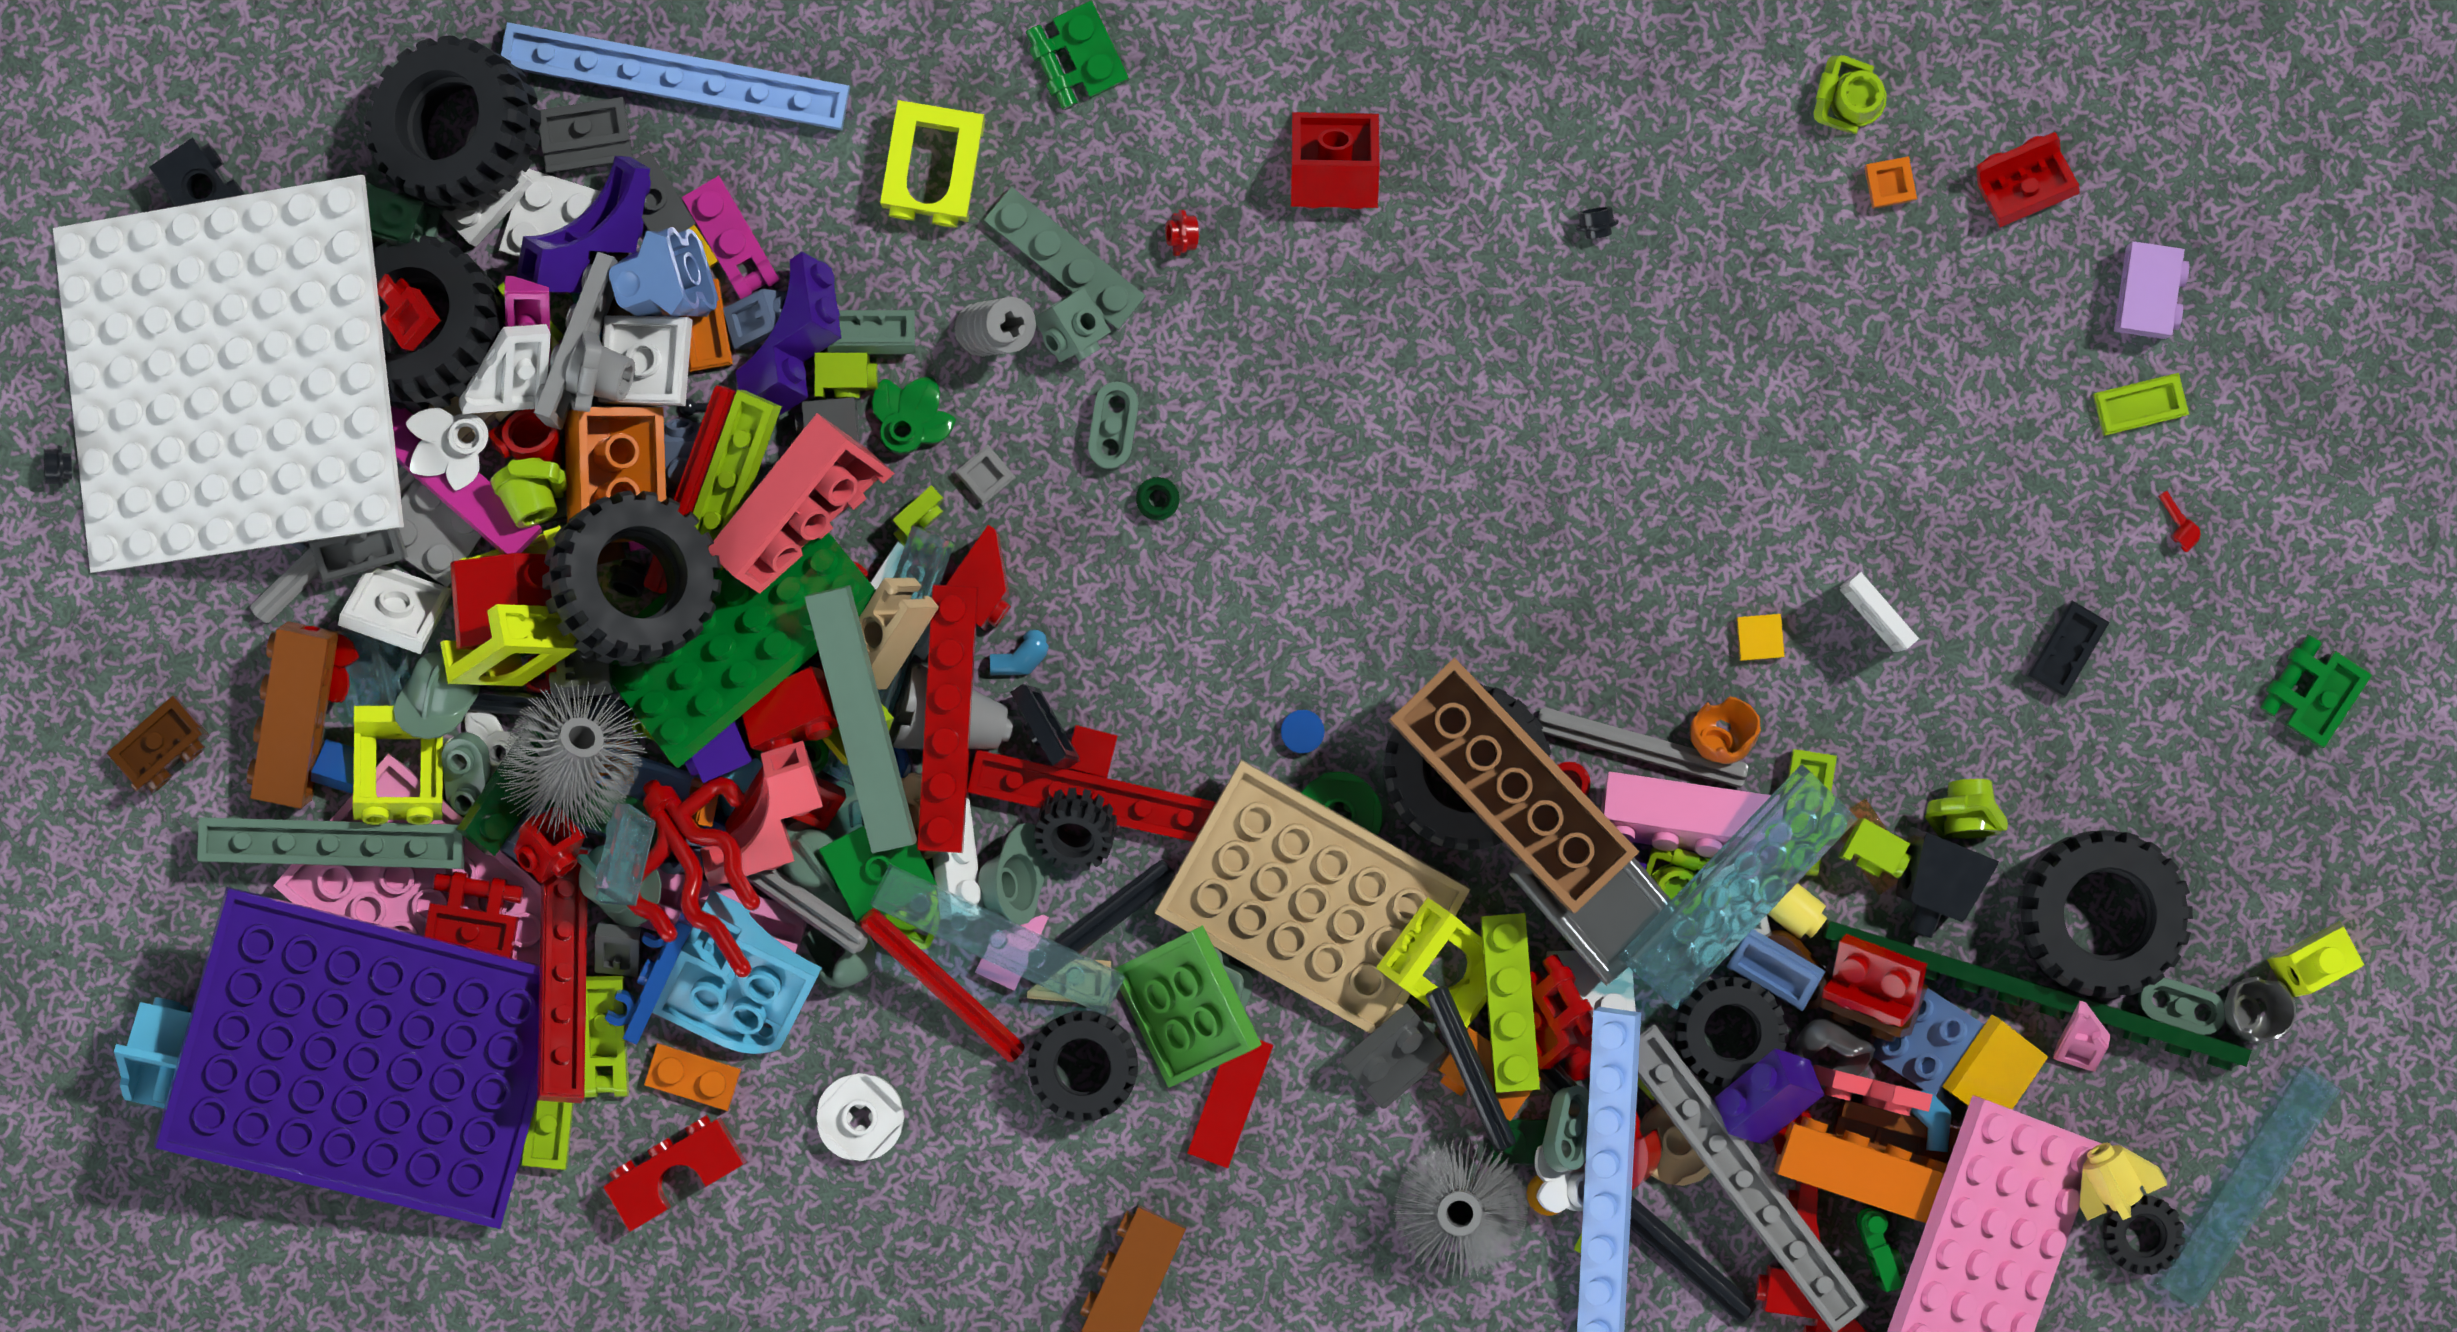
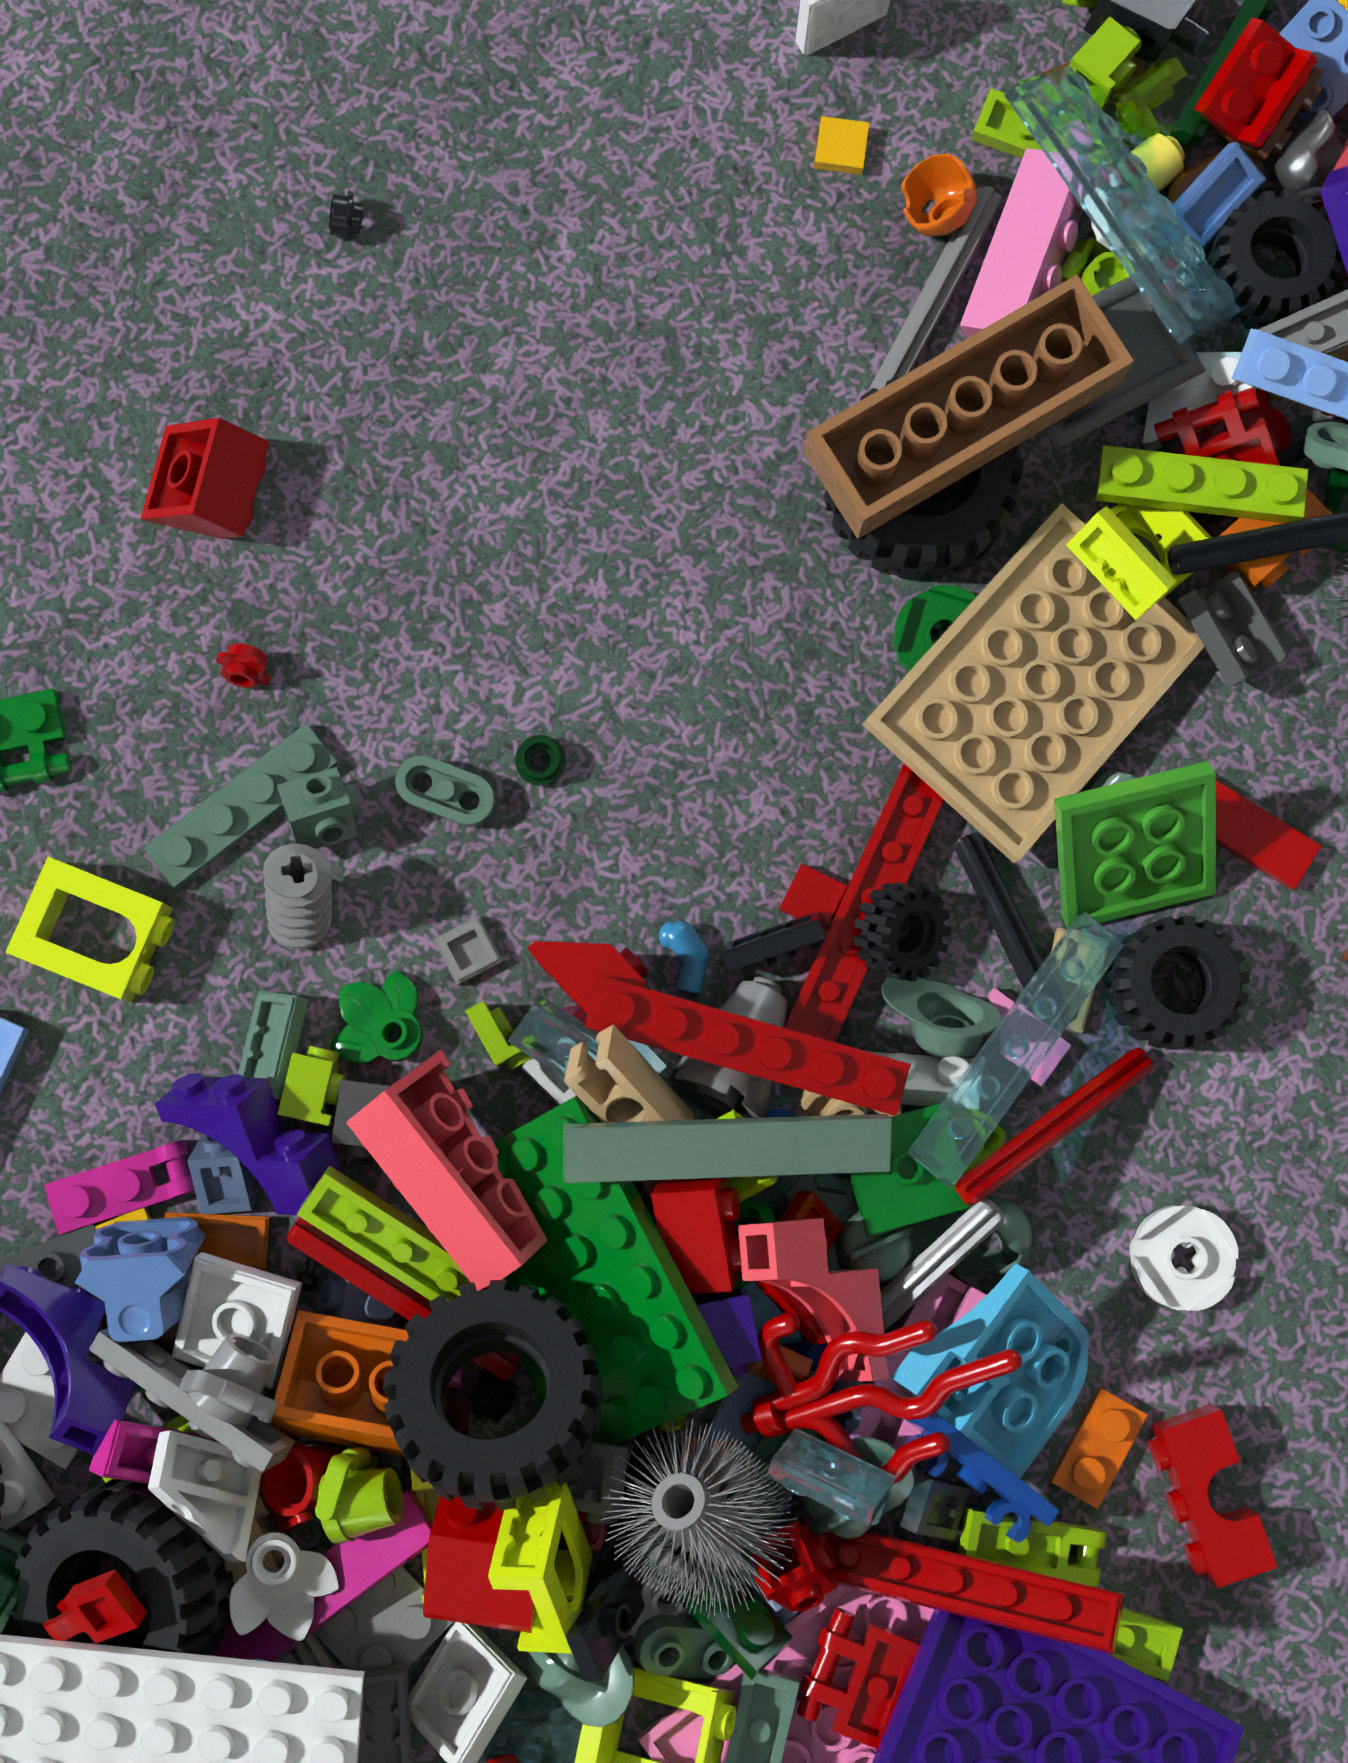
camera: 80 degrees left, 5 degrees down
(476, 705) = (605, 1621): none -> black plate
(1302, 731) = (840, 656): blue tile -> none
(1864, 893) = (1147, 91): none -> clear neon green bracket

